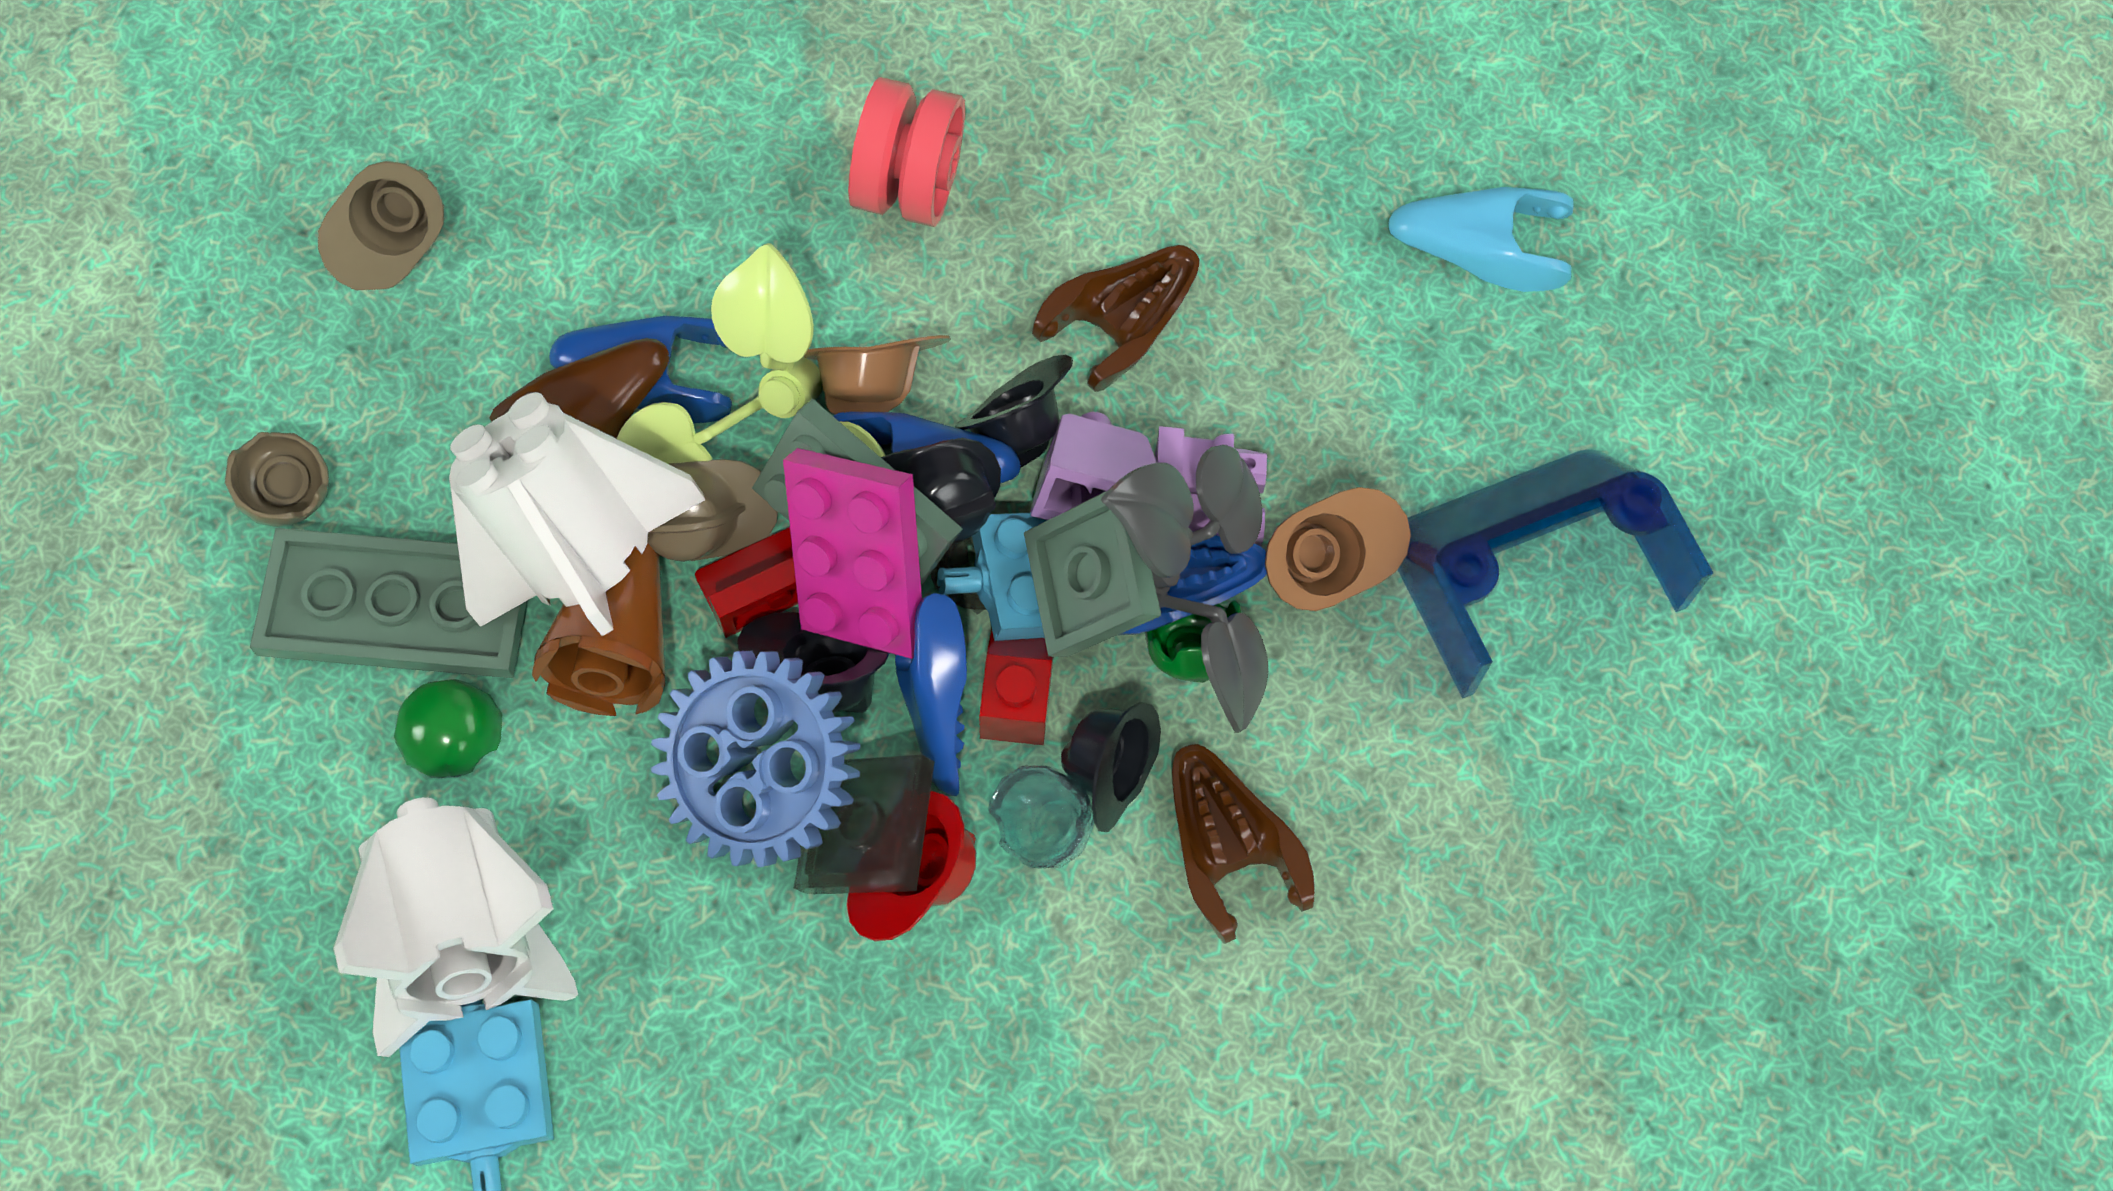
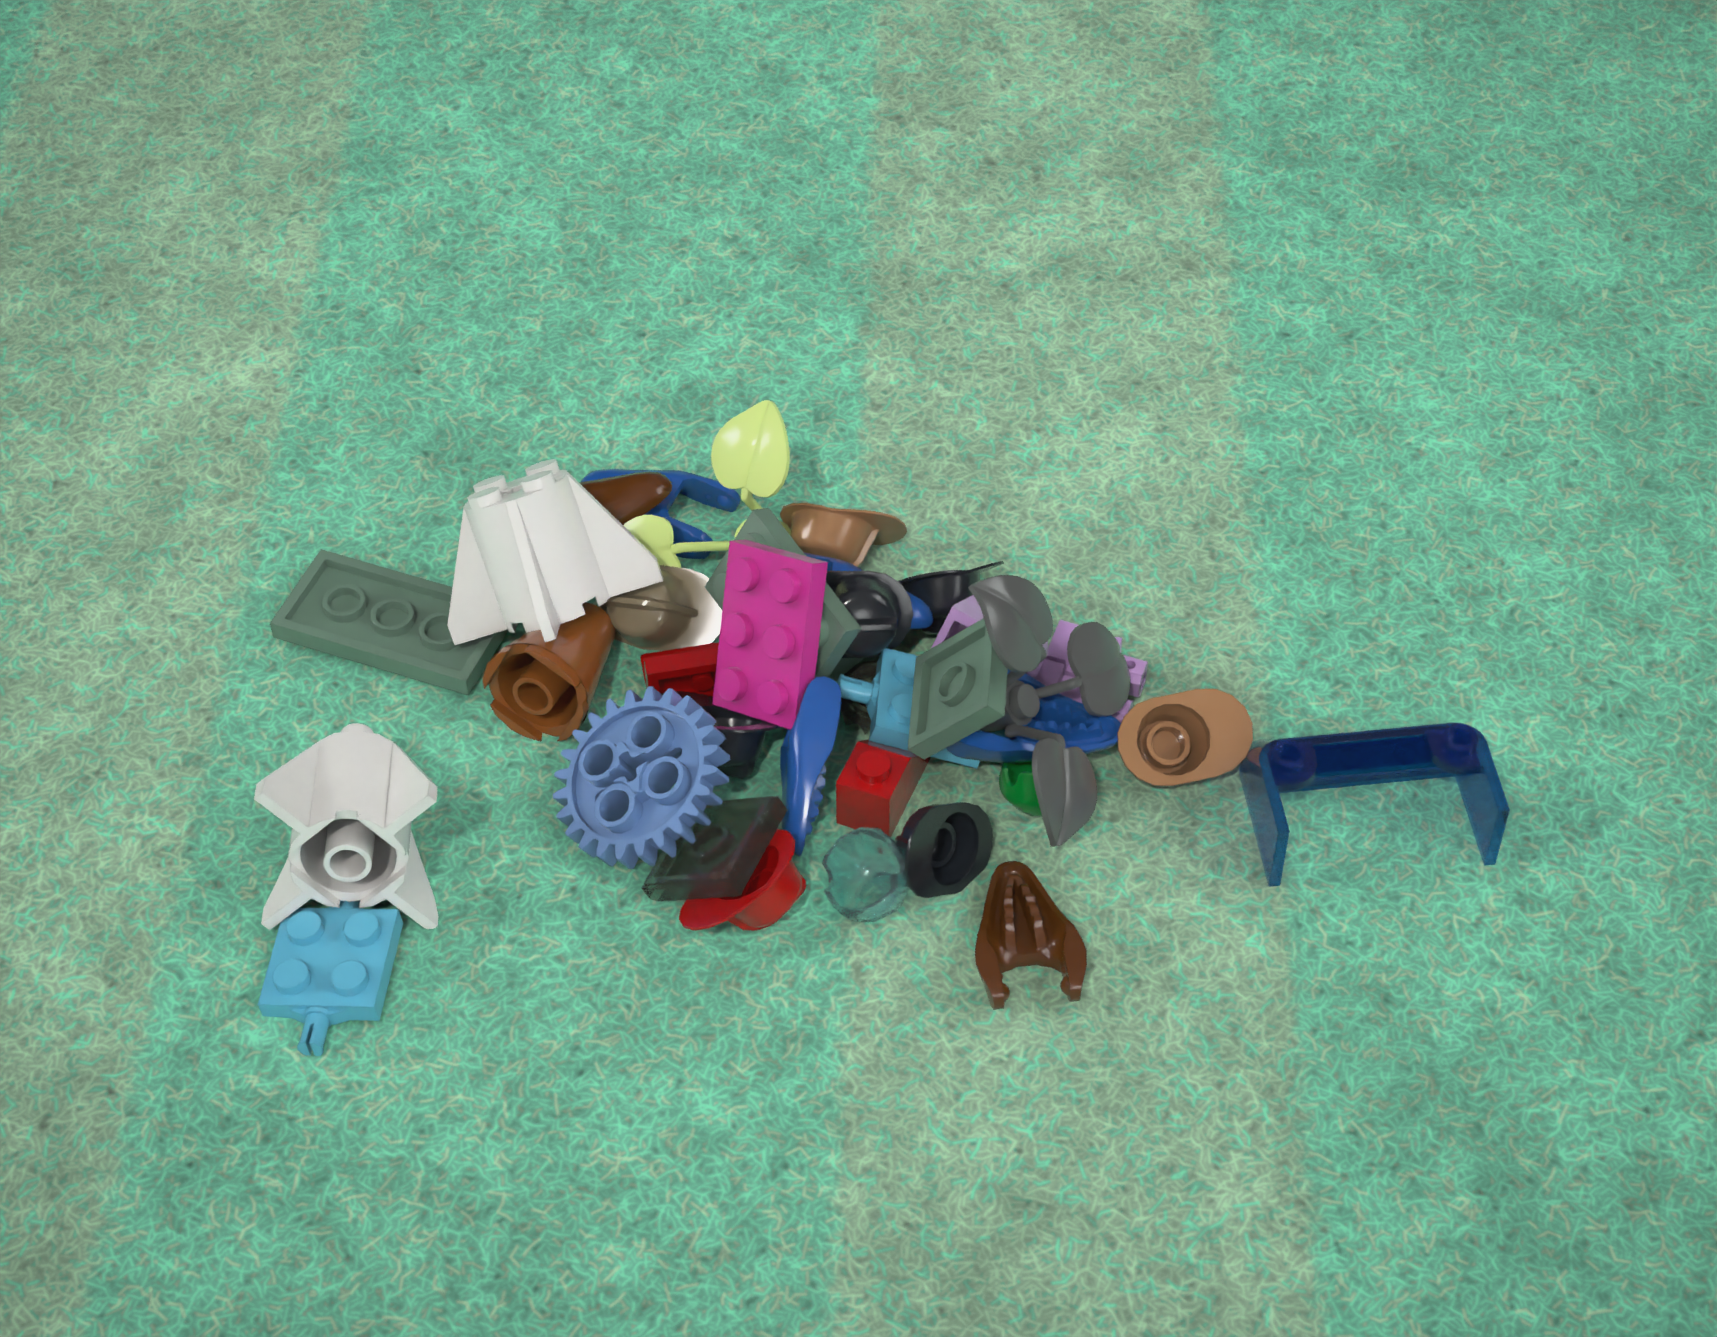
camera: 20 degrees right, 20 degrees down
(277, 478) = (334, 517): dark tan hair -> none
(380, 226) = (478, 368): dark tan piece -> none
(447, 728) = (405, 711): green hair -> none
(906, 151) = (913, 393): coral wheel -> none
(1126, 302) = (1063, 541): reddish brown animal -> none
(1477, 234) = (1388, 551): medium azure animal -> none

